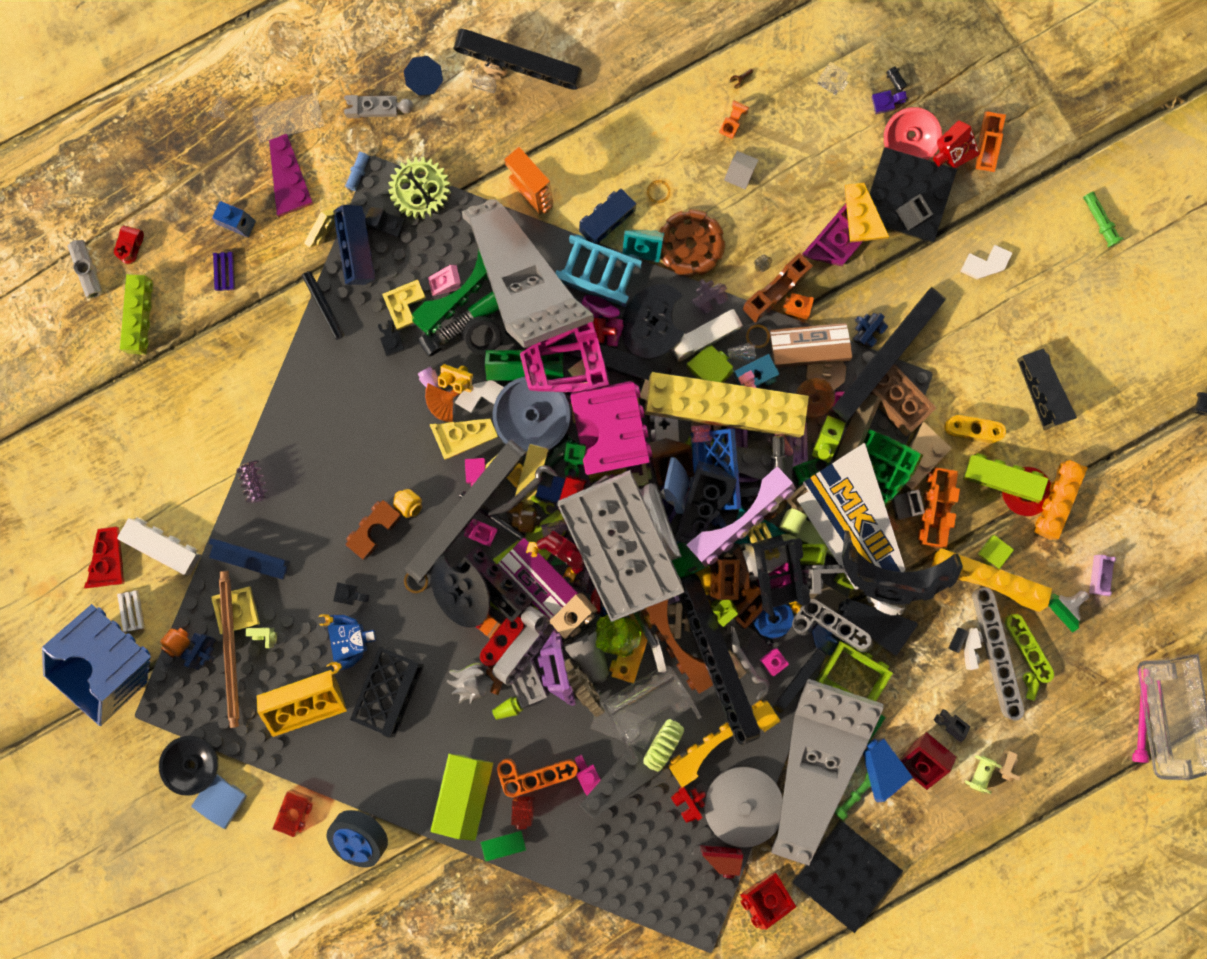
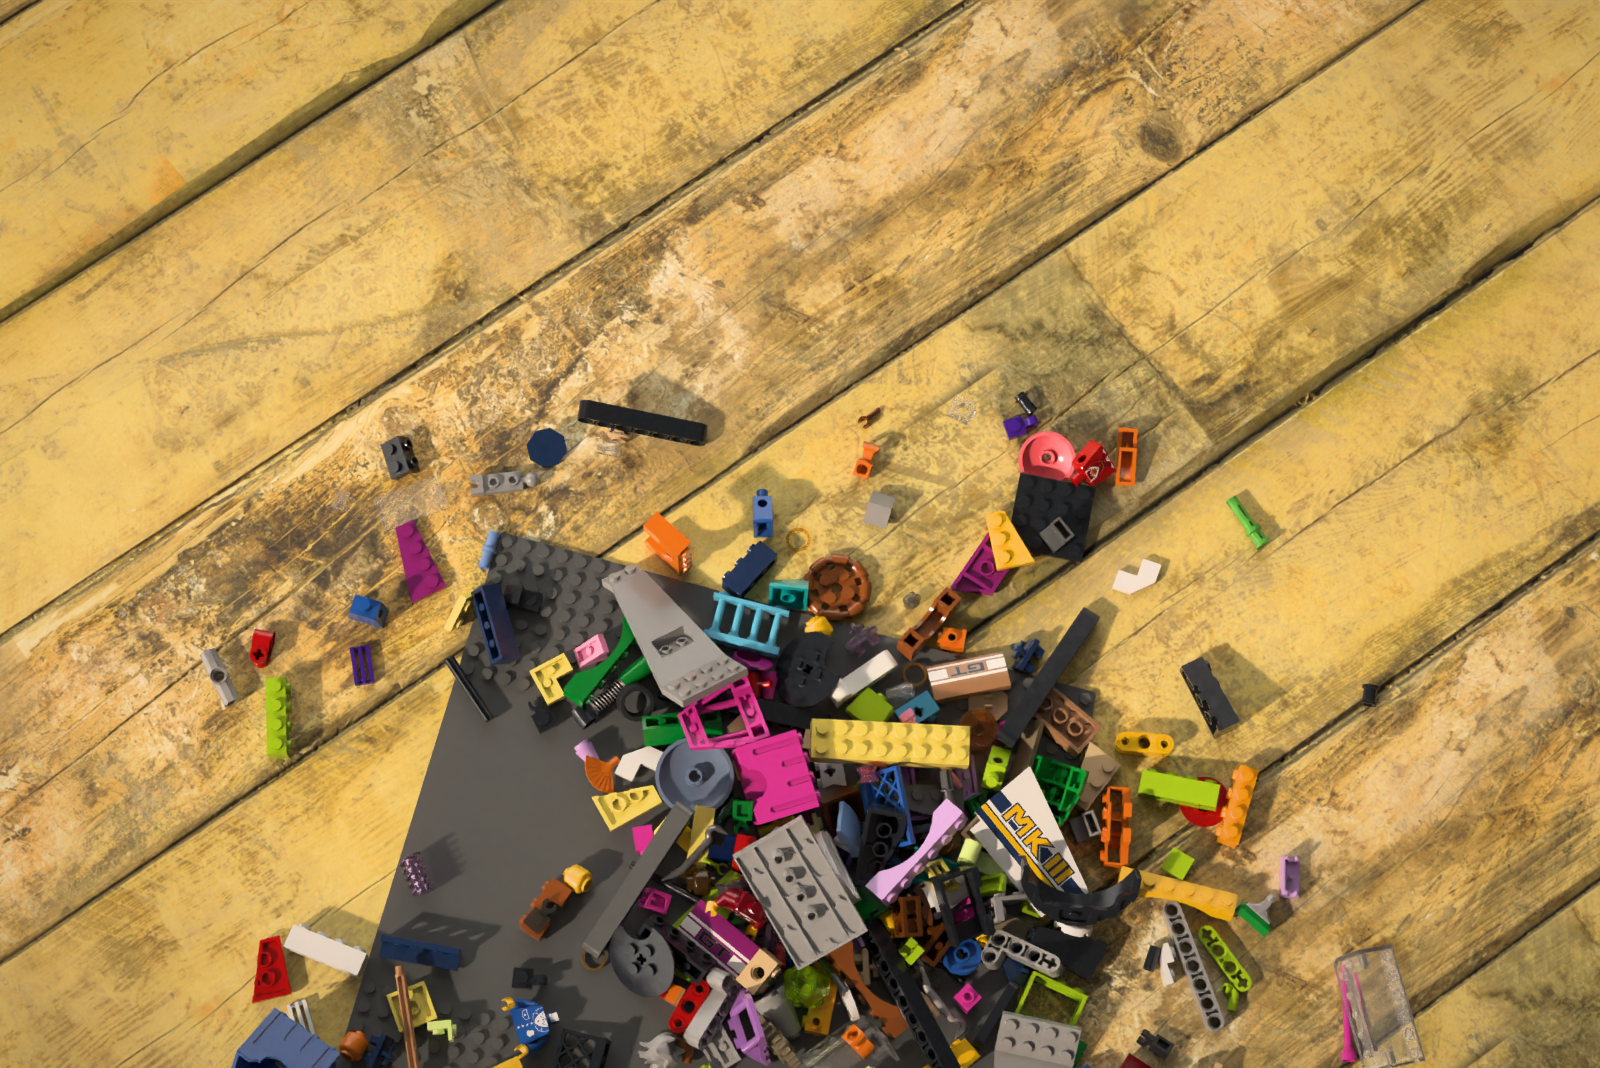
camera: 15 degrees left, 10 degrees down
(280, 71) = (400, 457): none -> black bracket
(364, 539) = (538, 919): none -> clear smoke plate
(432, 178) = (568, 550): yellowish green gear -> none
(458, 378) = (614, 747): yellow hips -> none
(626, 163) = (762, 514): none -> blue torso
(664, 694) = (858, 1041): none -> orange leg
(669, 277) = (819, 624): none -> yellow head

